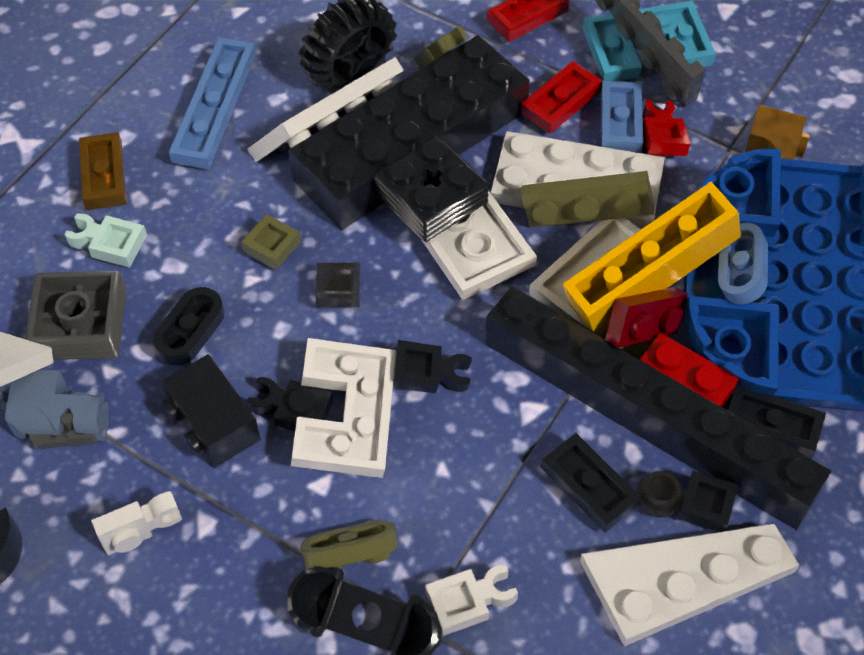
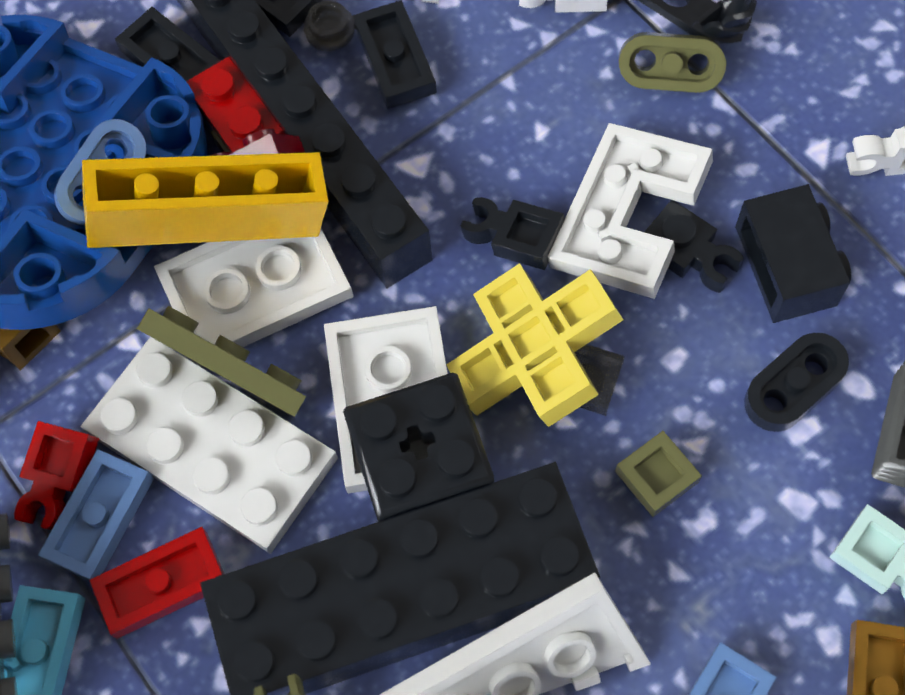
camera: 155 degrees left, 10 degrees up
(381, 281) = (535, 344): none -> light yellow plate

